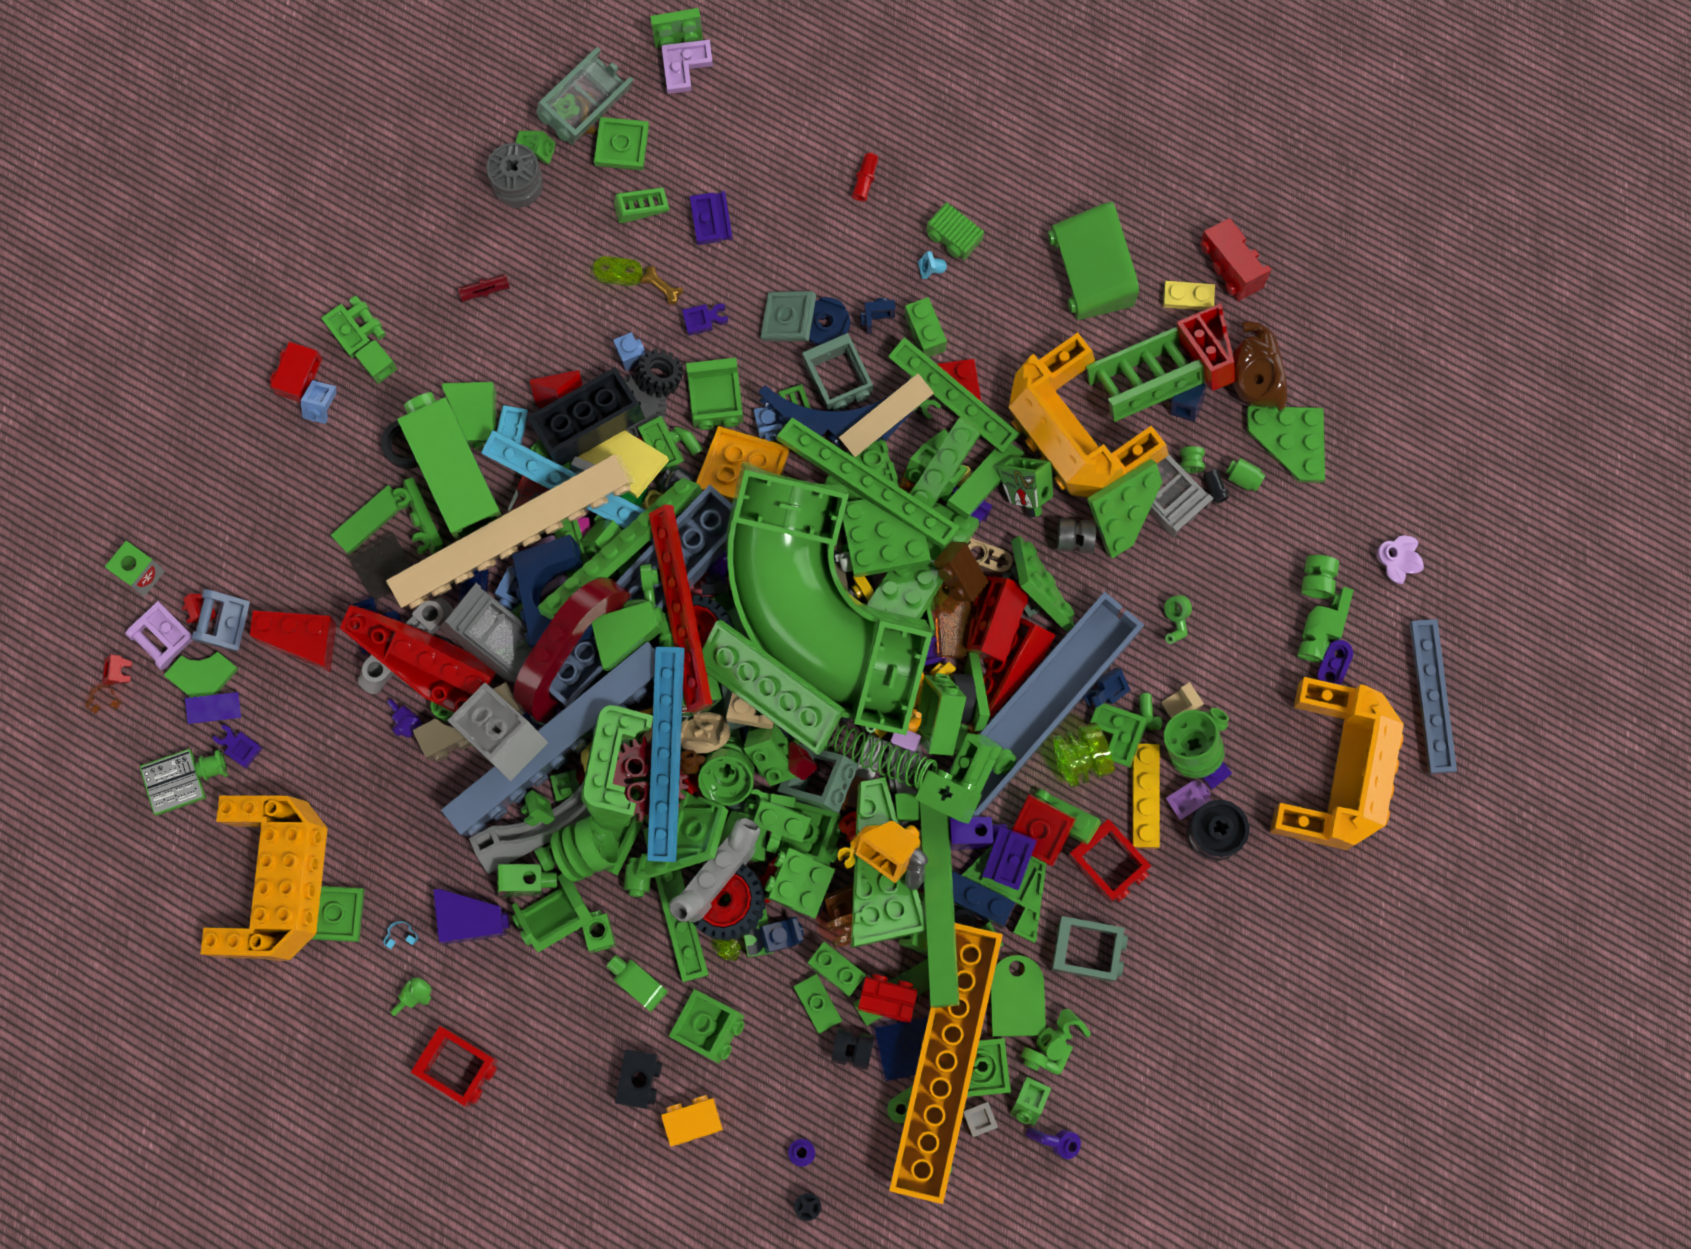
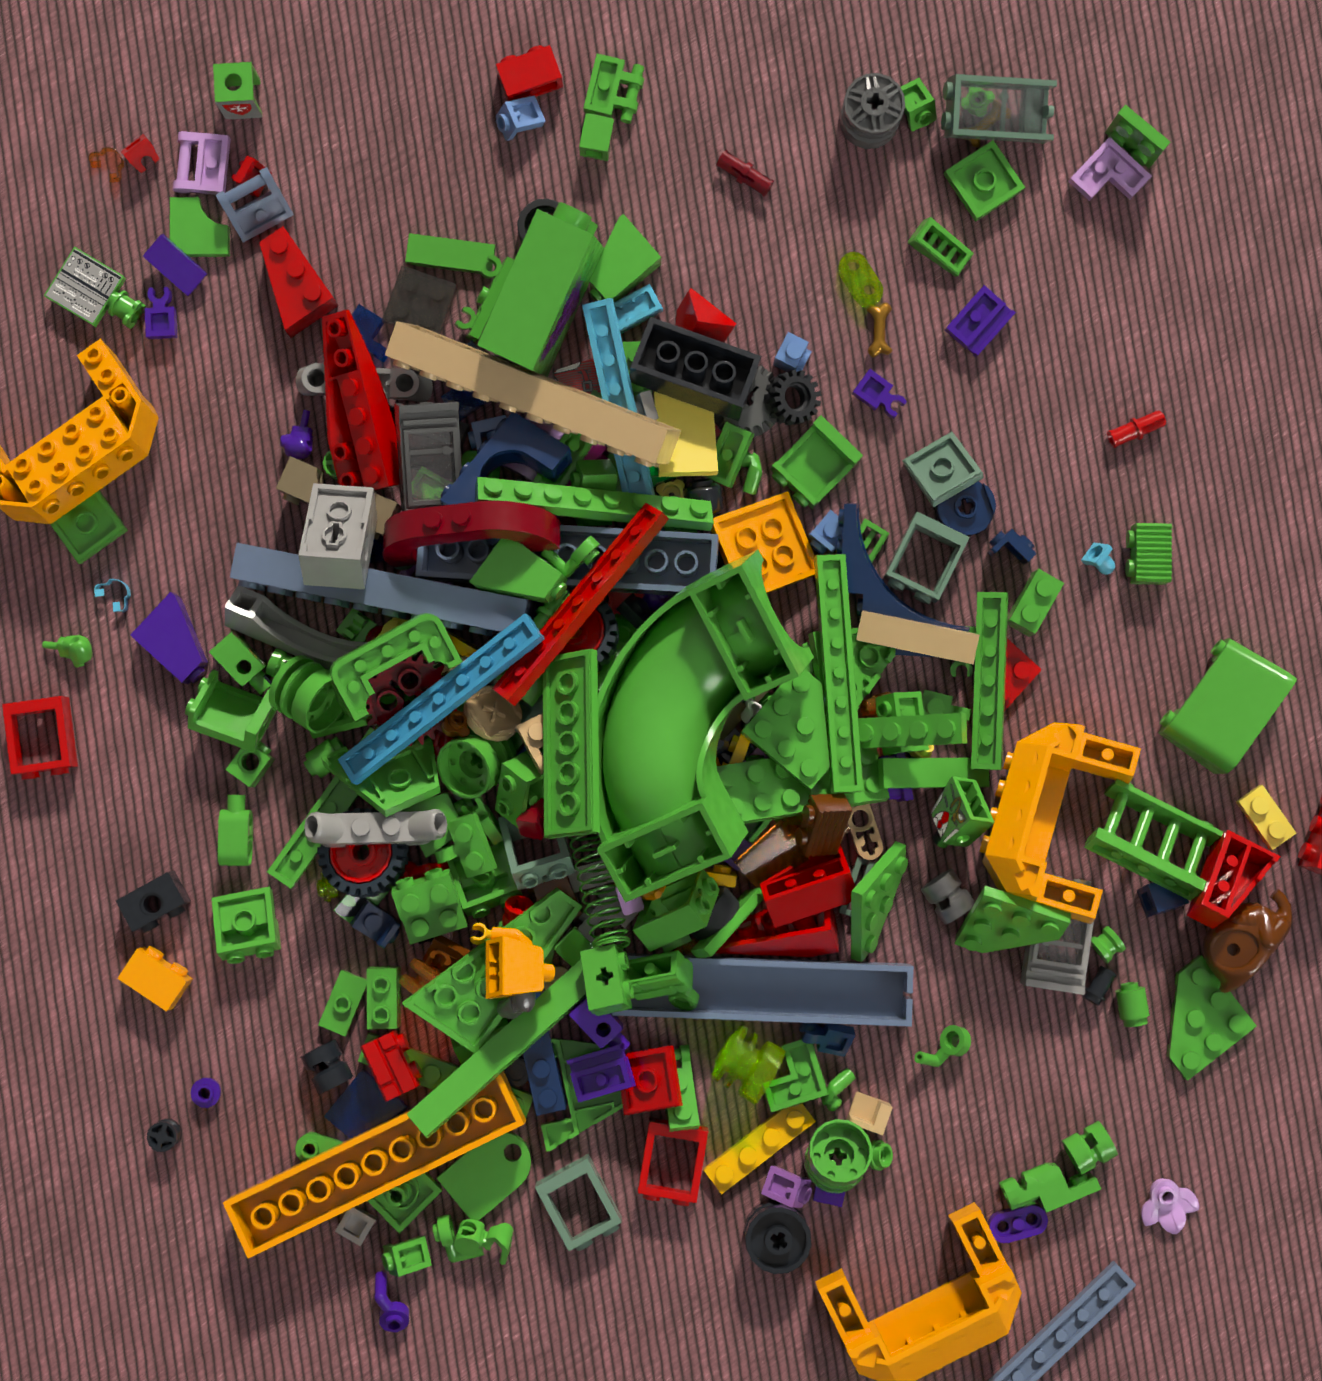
camera: 45 degrees right, 10 degrees up
(537, 809) = (313, 622): bright green tile -> none

